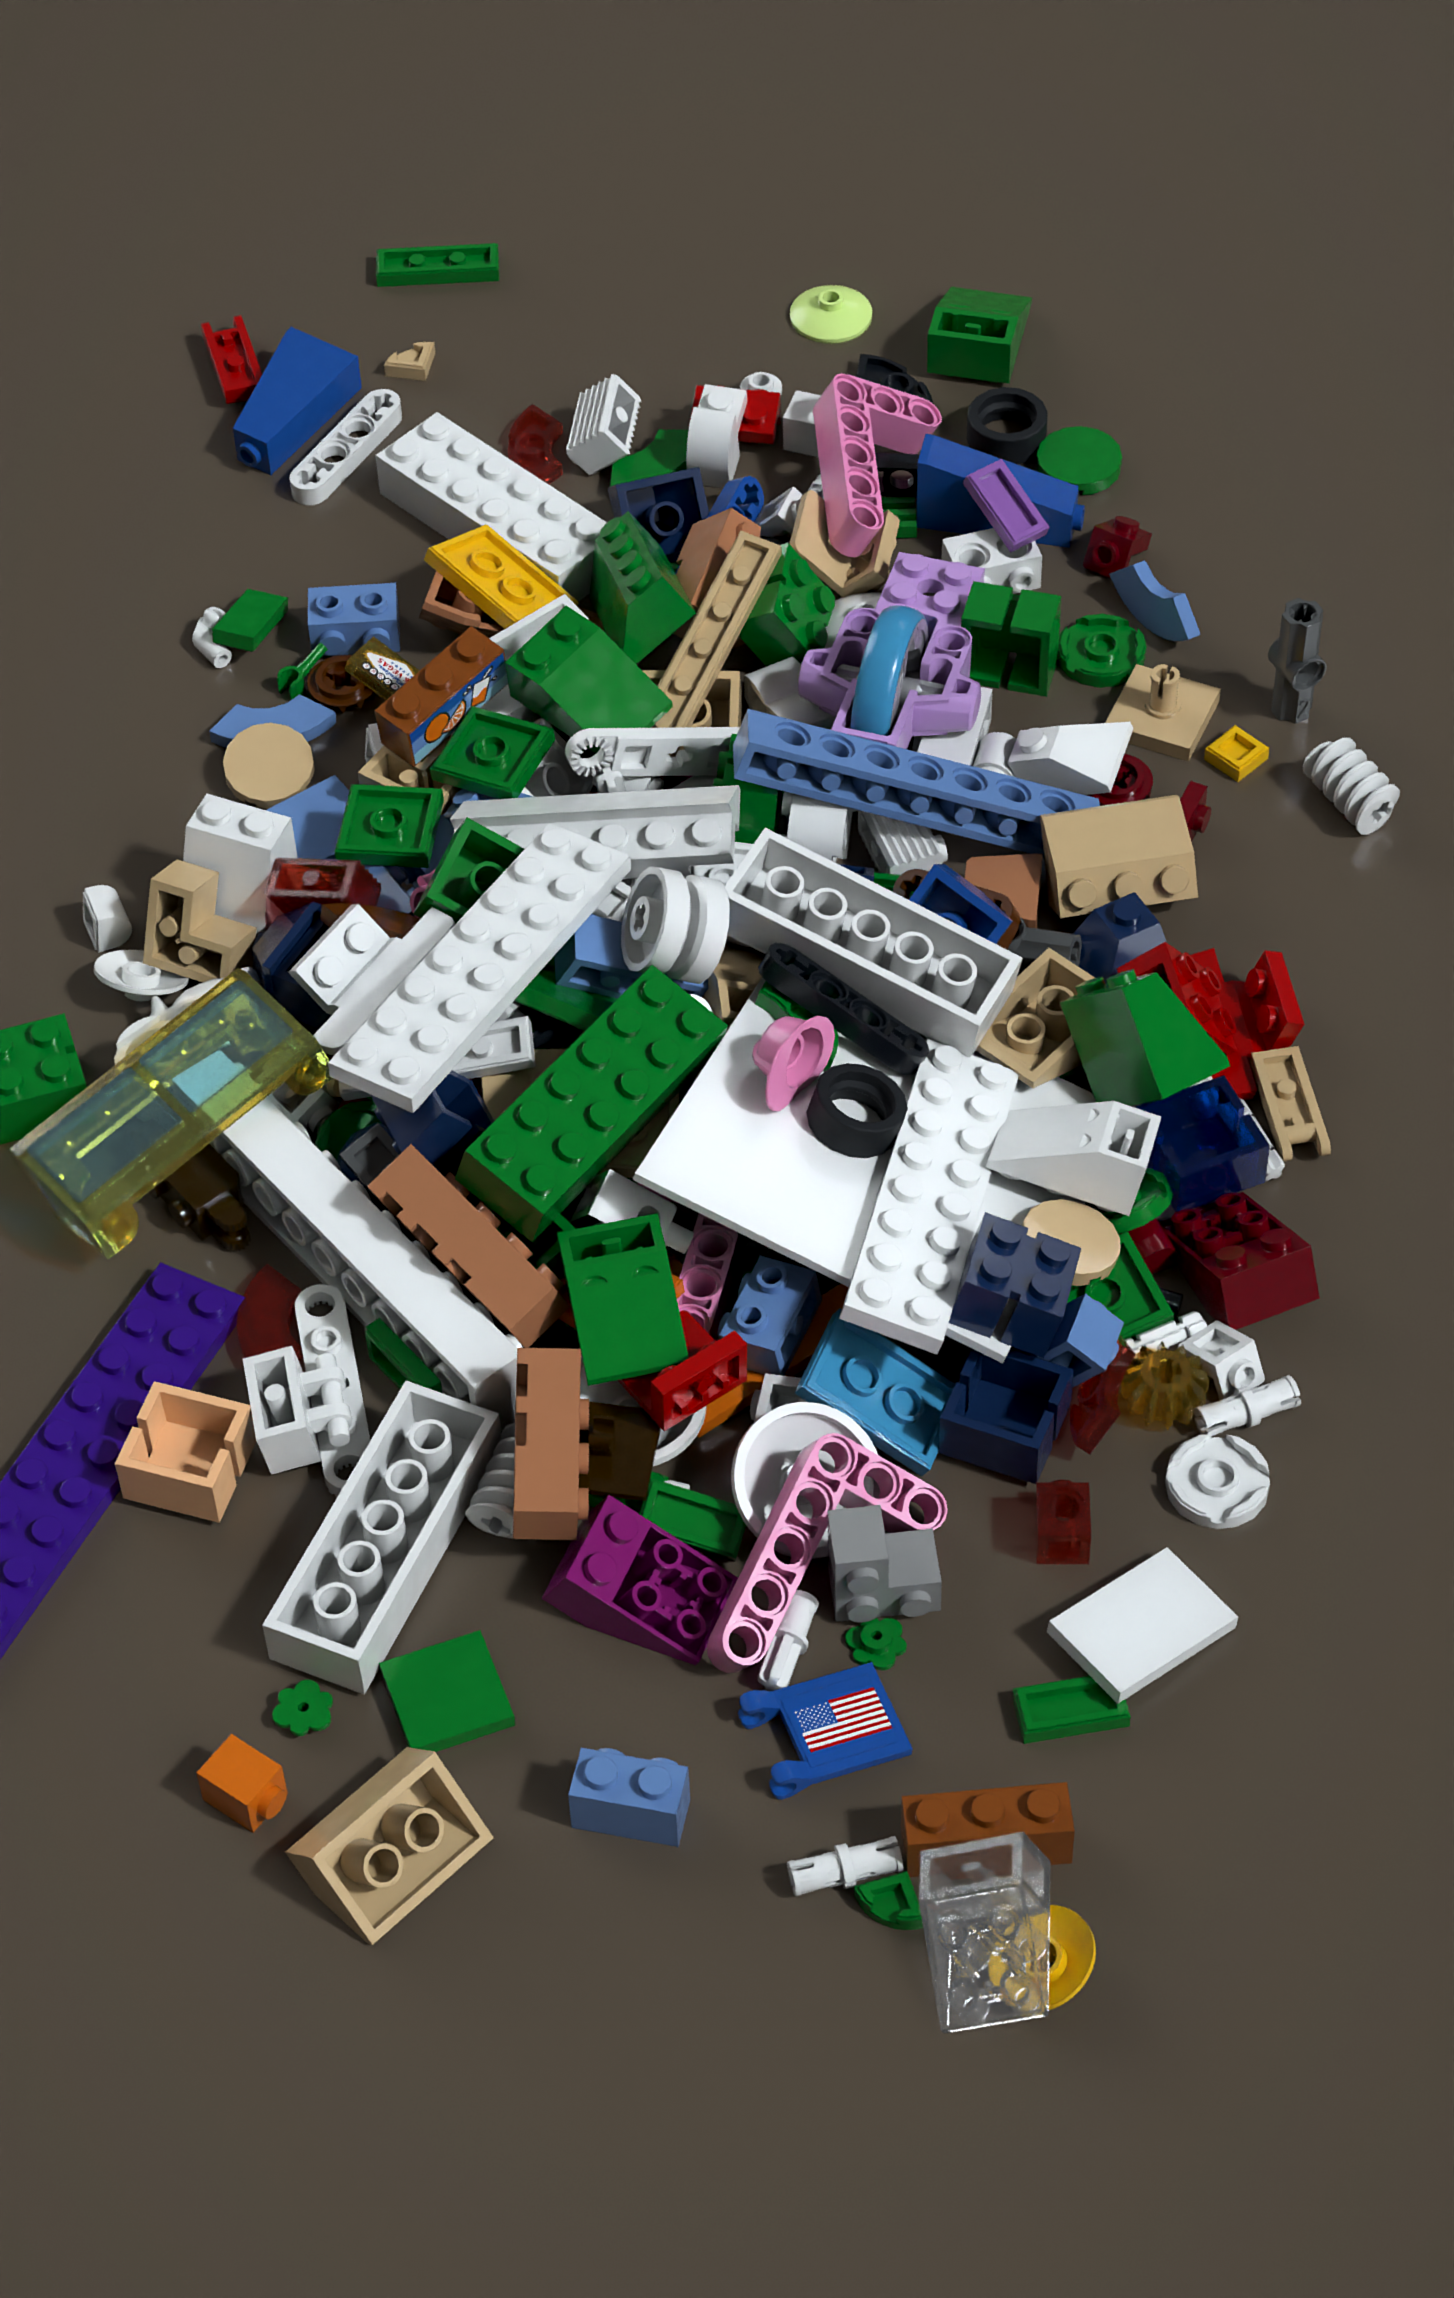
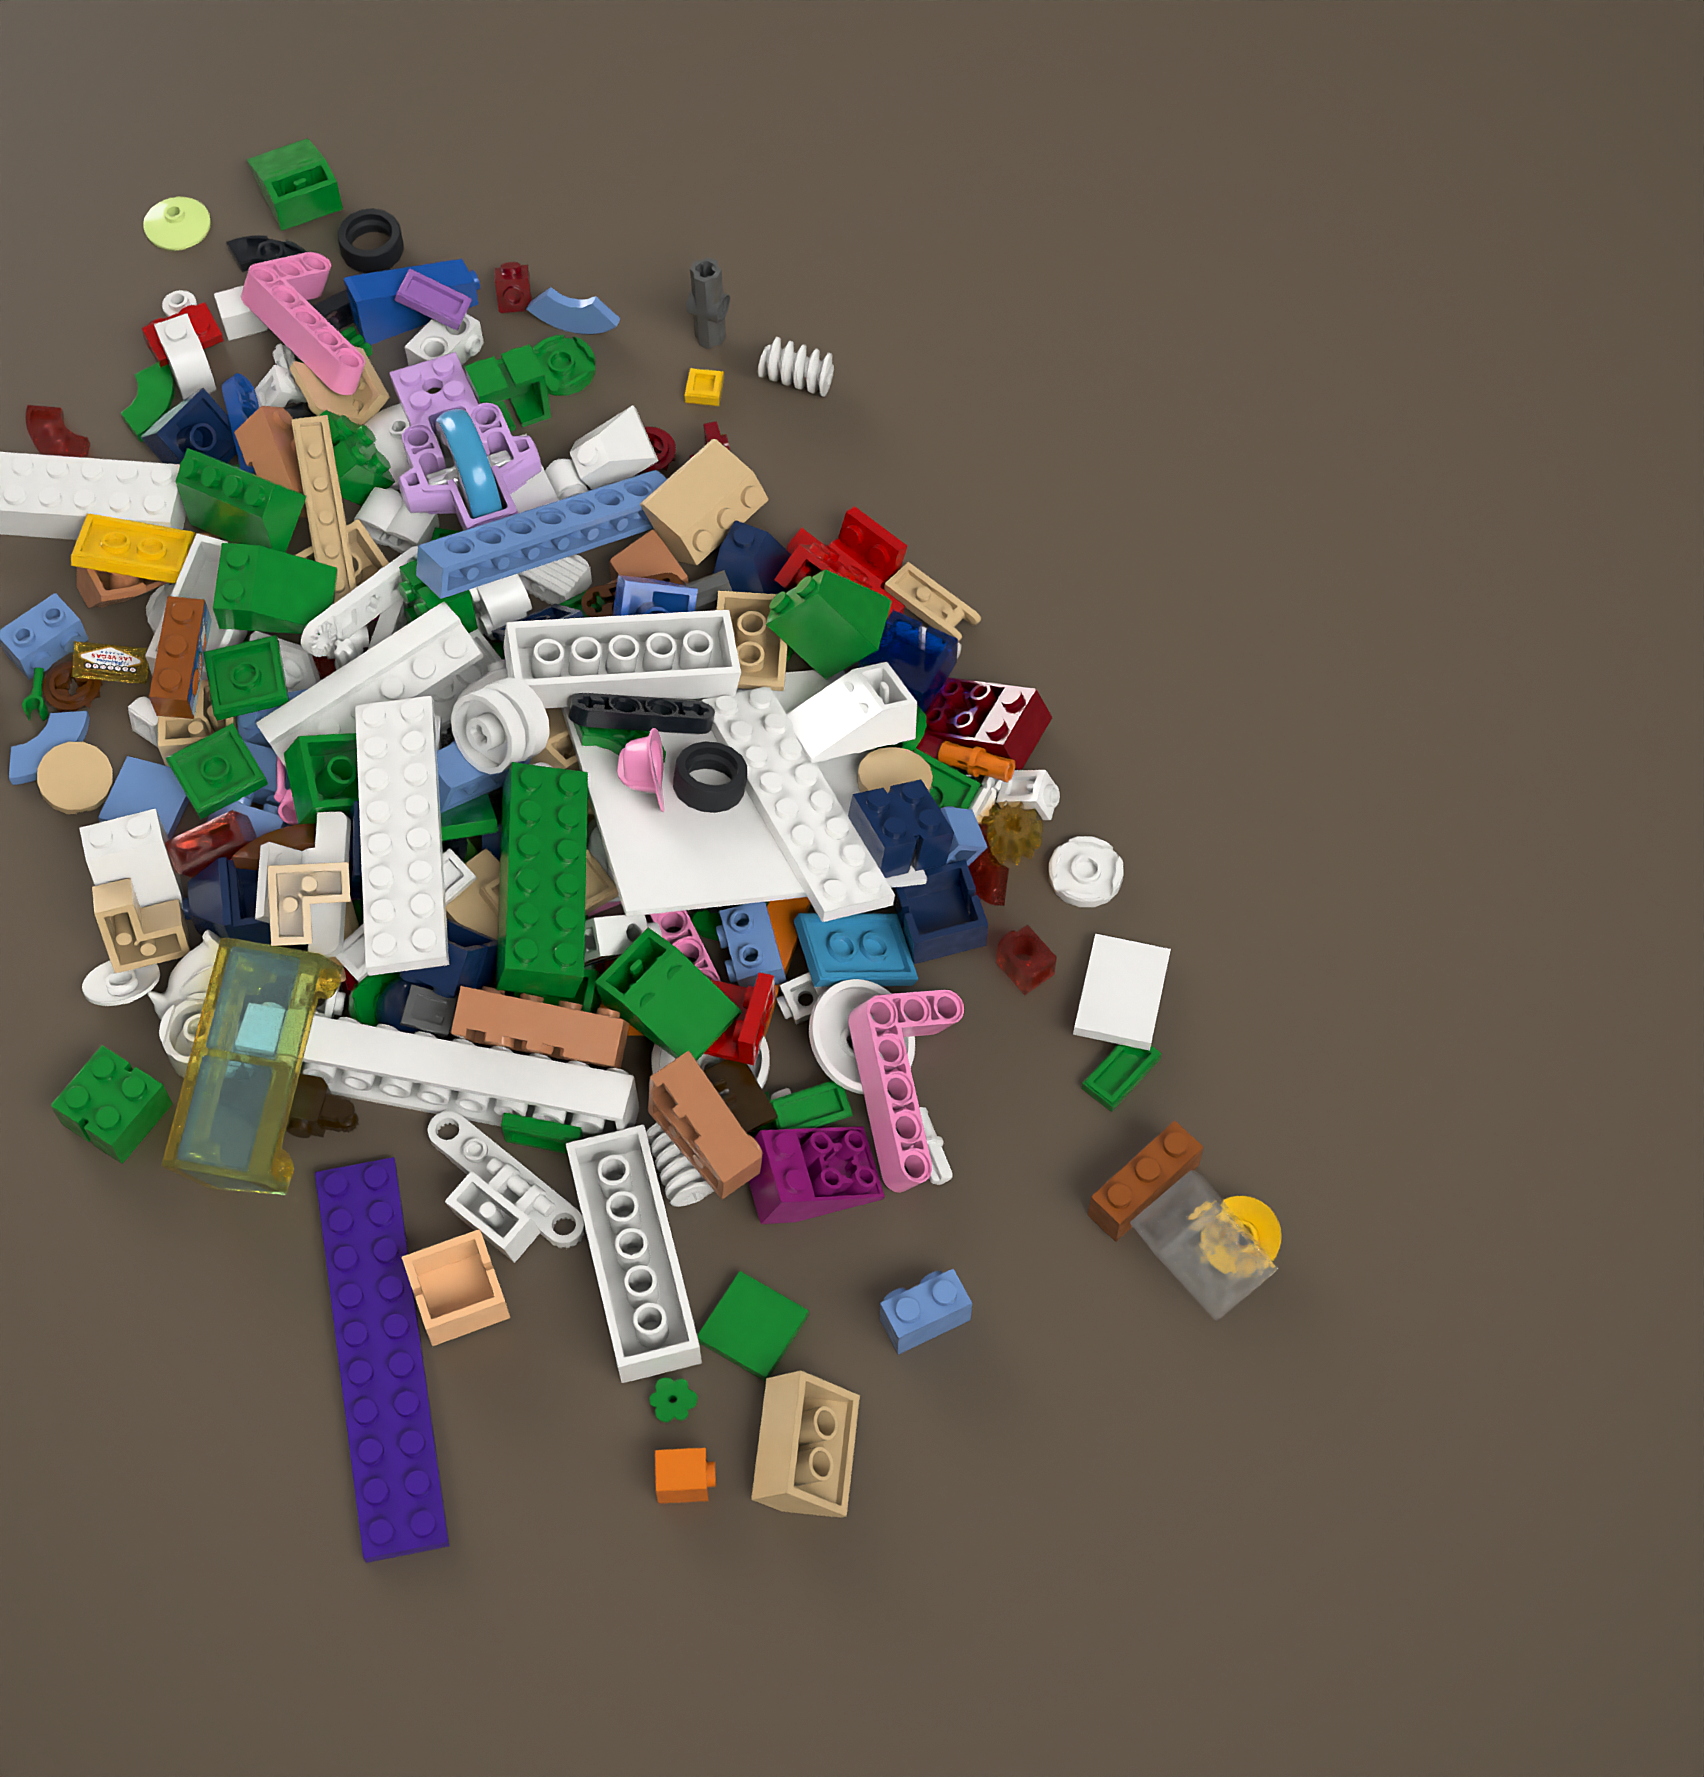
camera: 40 degrees left, 10 degrees up
(105, 917) = (56, 958): white brick -> none
(267, 1314) = (420, 1166): clear red tile -> none
(330, 960) = (295, 889): none -> tan brick
(603, 425) = (97, 393): white brick -> none
(834, 1724) = (998, 1177): blue flag -> none
(845, 1866) = (1080, 1261): white pin -> none
(878, 1571) = (950, 1063): light grey brick -> none
(879, 1652) = (976, 1117): green plant -> none
(891, 1902) = (1123, 1263): green tile -> none
(1081, 458) = (436, 237): green tile -> none
(1165, 710) = (636, 381): tan tile -> none
(1186, 1287) = (976, 761): none -> orange pin
(1247, 1406) = (1066, 813): white pin -> none

